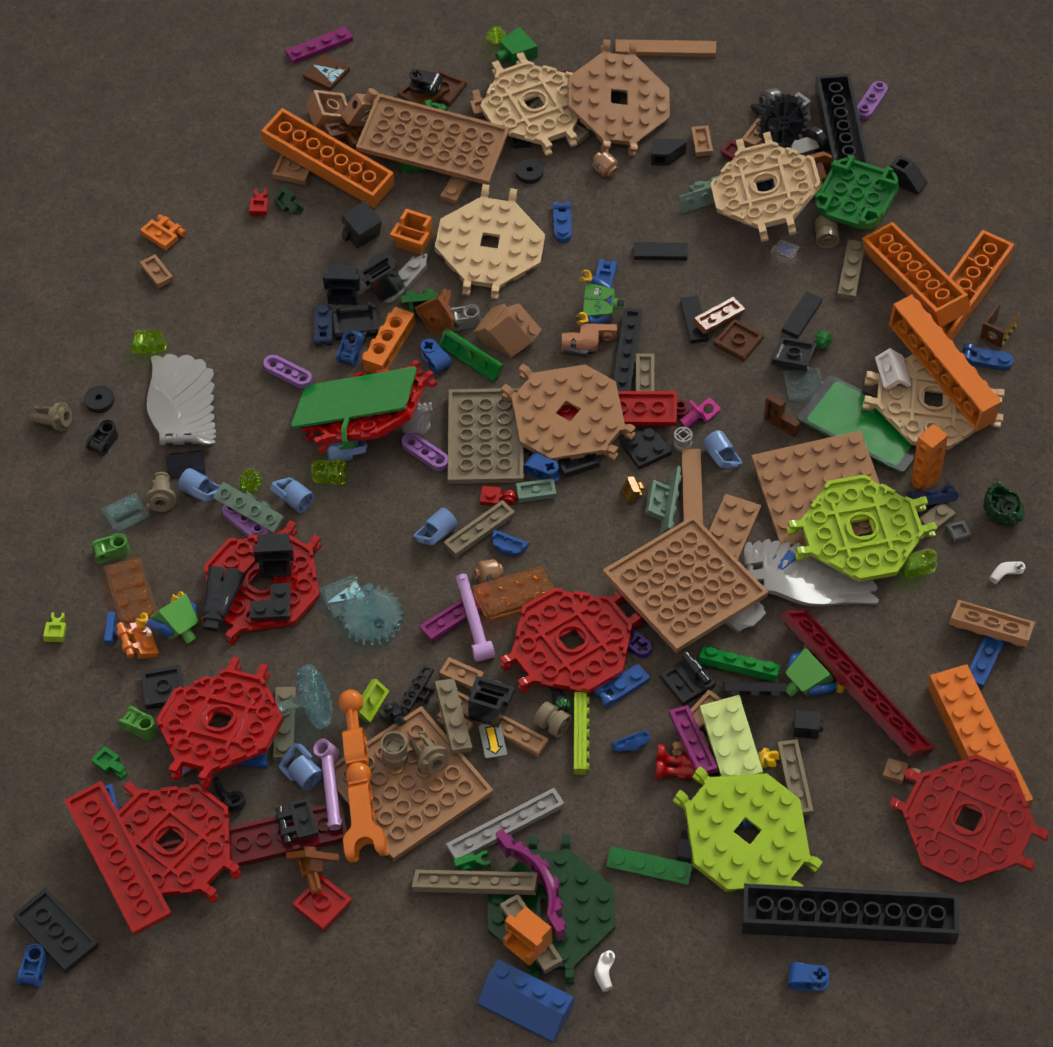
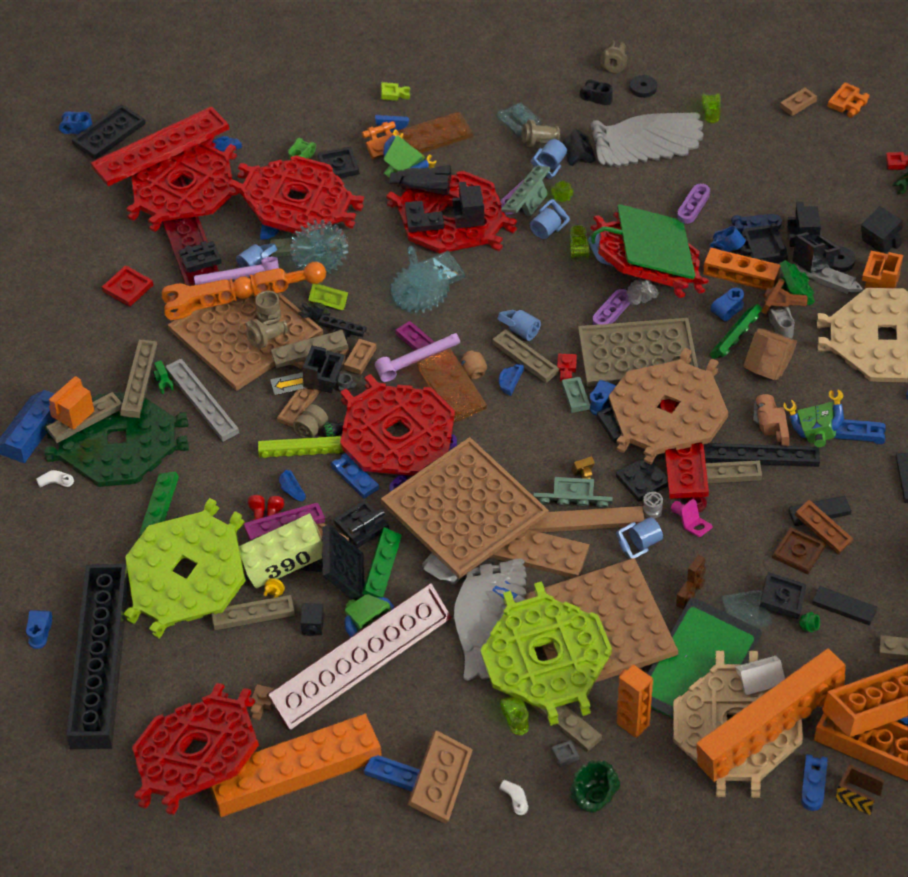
camera: 85 degrees right, 5 degrees down
(109, 761) = (262, 139): green plate -> none
(111, 548) = (478, 113): bright green piece -> none
(234, 800) = (226, 220): black plate -> none
(311, 865) = (162, 267): dark orange piece -> none
(550, 883) = (133, 419): magenta piece -> none
(936, 496) = (605, 724): dark blue plate -> none

